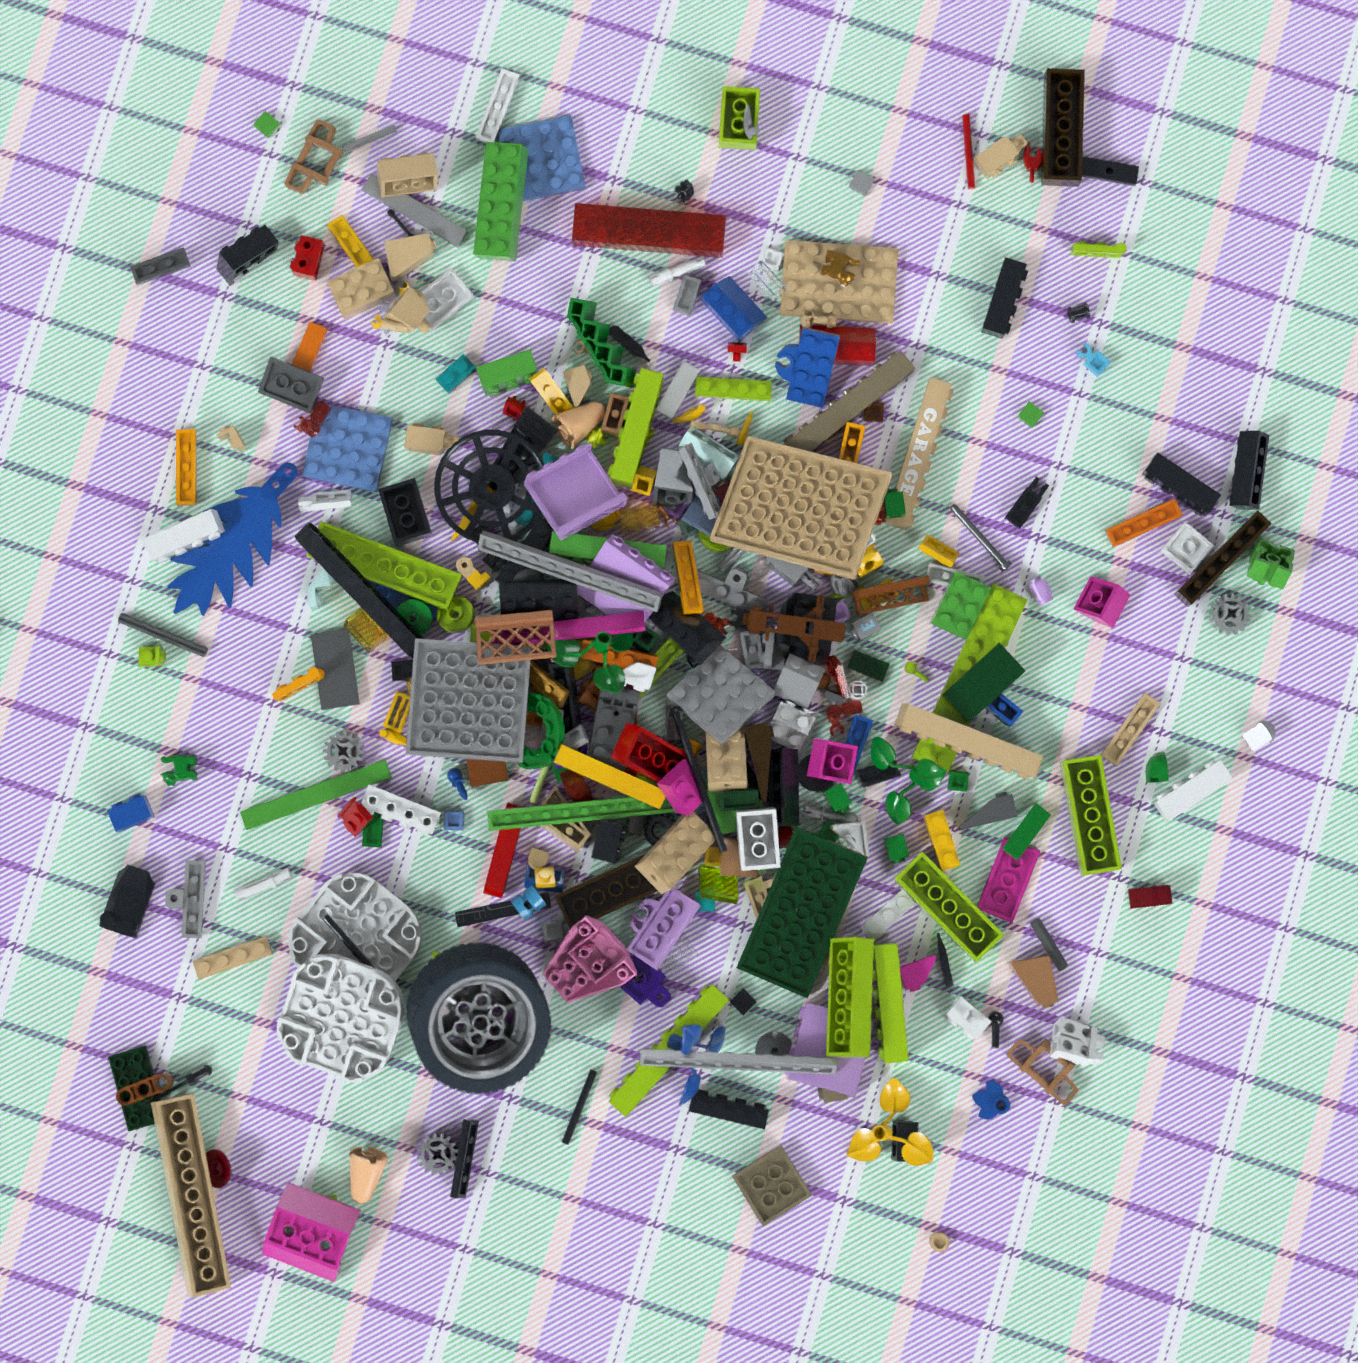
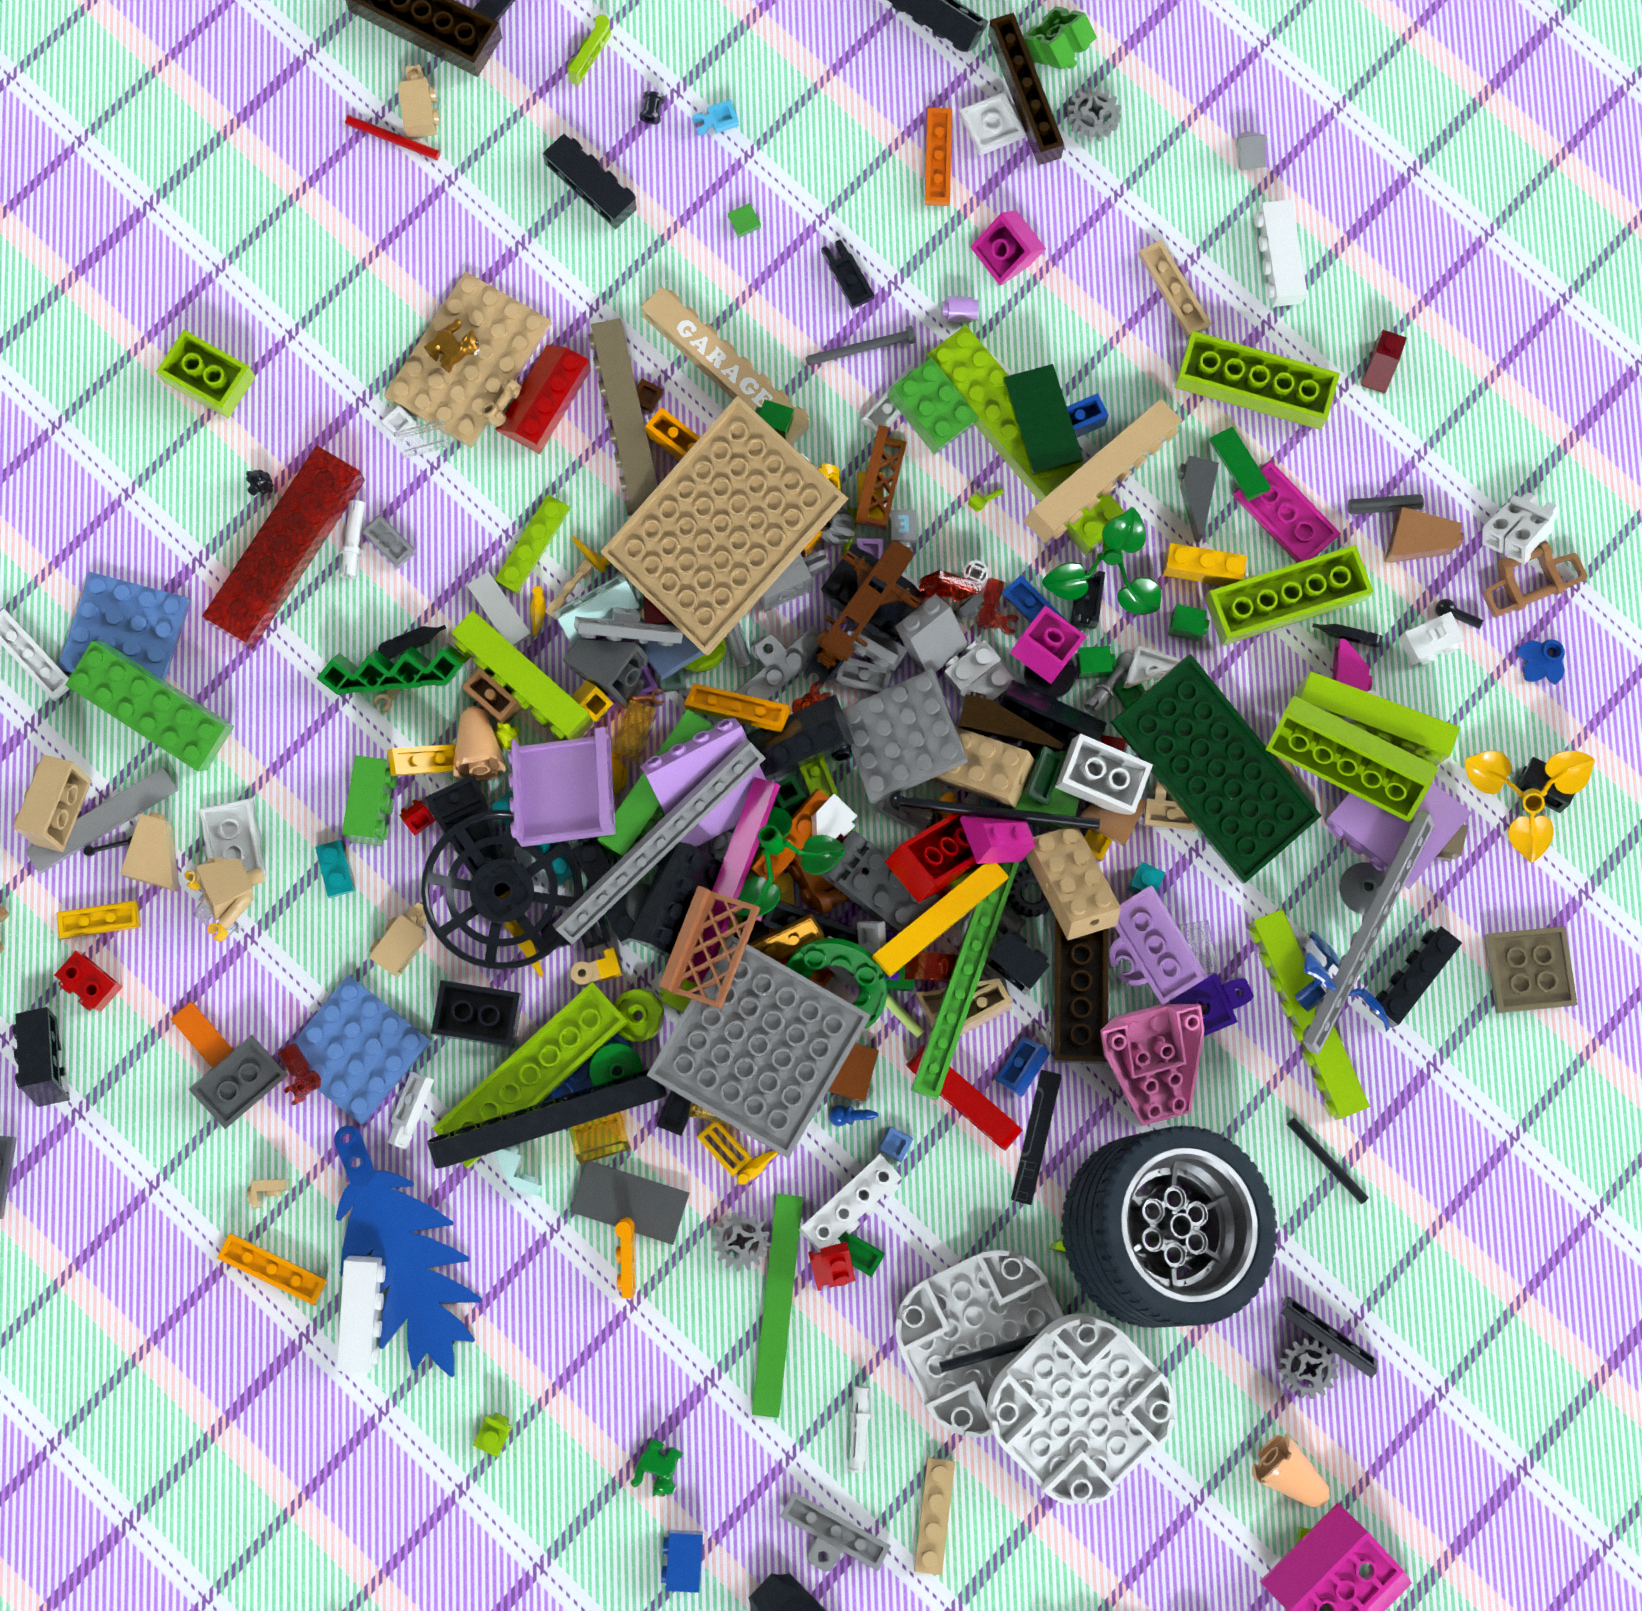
camera: 70 degrees left, 5 degrees down
(162, 635) = (472, 1406): dark grey axle -> none
(361, 289) = (164, 932): tan brick -> none
(534, 899) = (1044, 1089): dark azure wheel -> none
(538, 858) = (994, 1061): tan tile -> none
(544, 877) = (1023, 1063): yellow plate -> none
(552, 930) = (1092, 1086): light grey plate -> none
(578, 383) = (427, 725): tan slope -> none
(717, 886) = (1136, 856): clear neon green tile -> none
(733, 308) = (434, 496): blue slope -> none
(737, 348) = (487, 515): red tile -> none
(743, 1001) = (1288, 896): black tile -> none
(747, 122) = (228, 364): light grey bar -> none
(809, 366) = (554, 437): blue plate -> none
(861, 183) = (363, 275): light grey tile -> none
(868, 666) = (950, 549): dark green tile -> none
(887, 915) = (1263, 673): white plate -> none
(939, 551) = (853, 401): yellow plate -> none
(958, 781) = (1145, 510): green tile -> none
(1032, 163) = (445, 74): red hand -> none
(1157, 768) = (1235, 281): green brick -> none
(1181, 484) = (914, 93): black brick -> none

